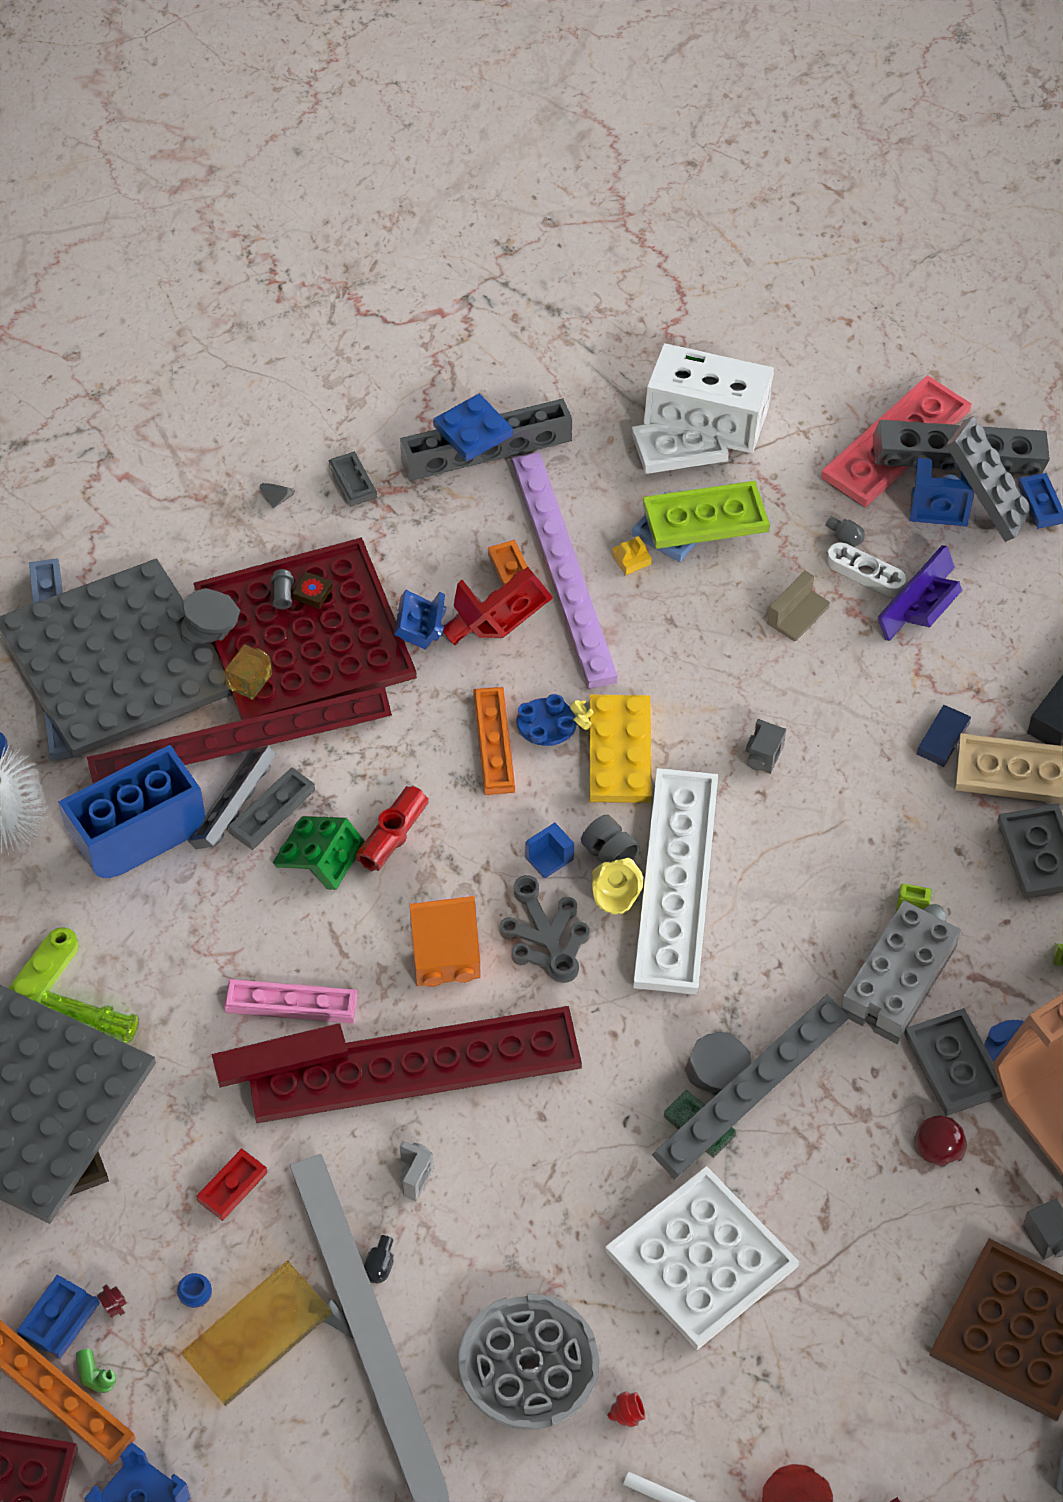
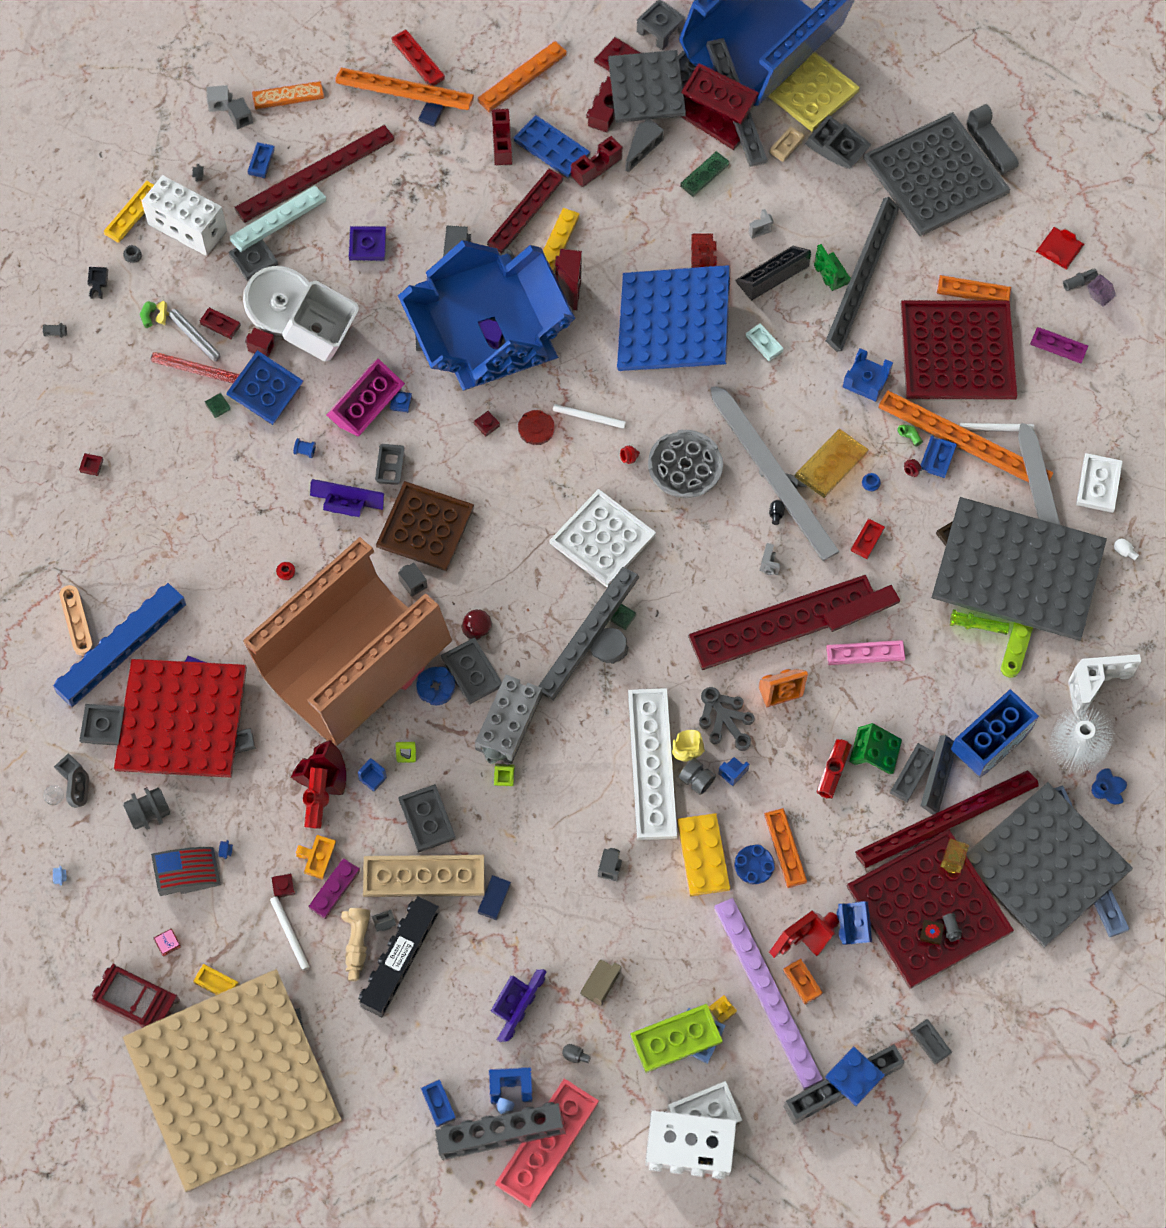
camera: 170 degrees right, 10 degrees up
(208, 616) = (992, 893): dark grey hat -> none
(275, 493) = (981, 1022): dark grey slope -> none
(581, 713) = (734, 876): light yellow piece -> none
(863, 559) = (555, 1015): white beam -> none
(989, 478) = (479, 1086): dark grey plate -> none

